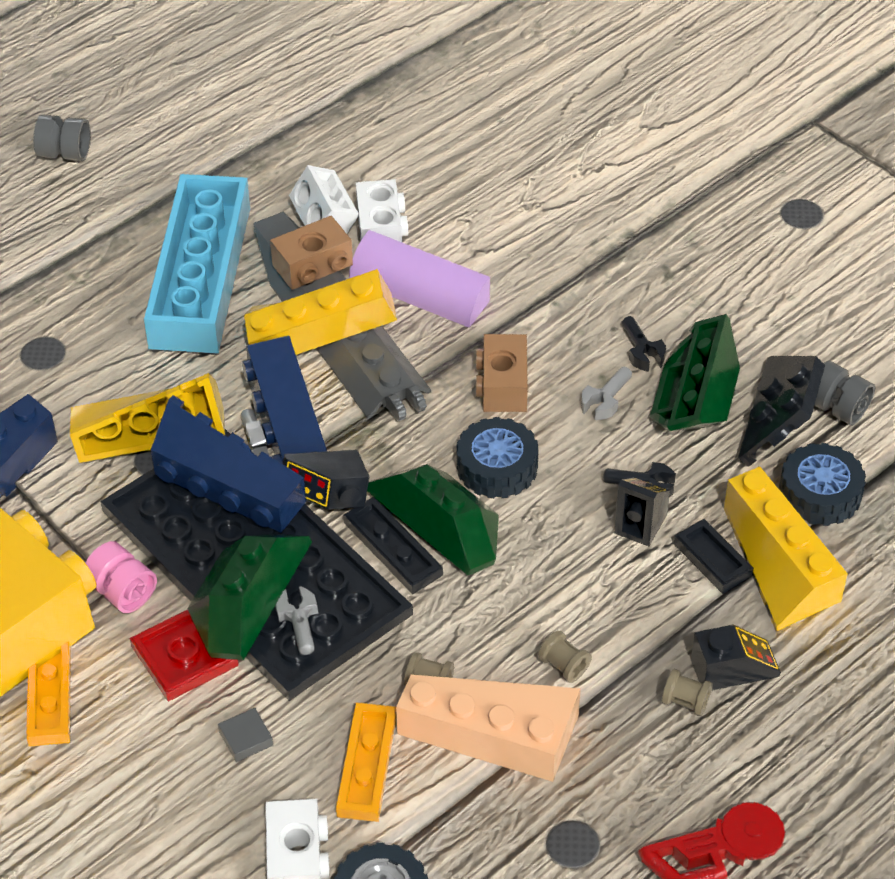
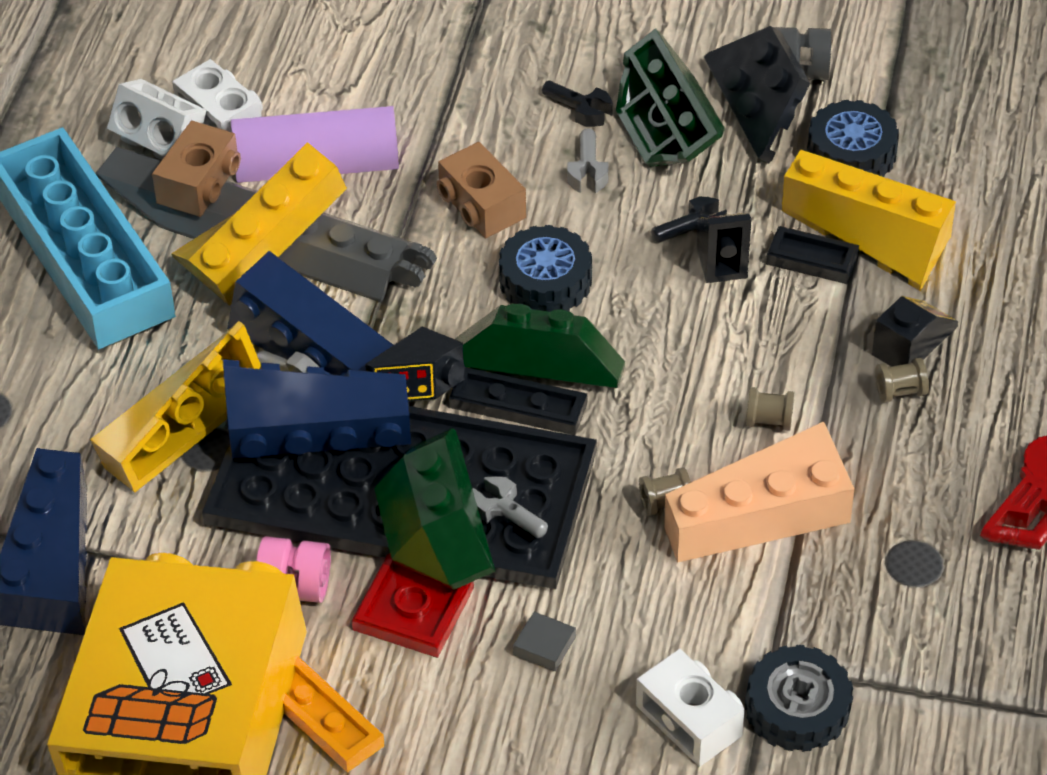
camera: 35 degrees left, 0 degrees up
(366, 762) = (681, 597): light orange plate -> none

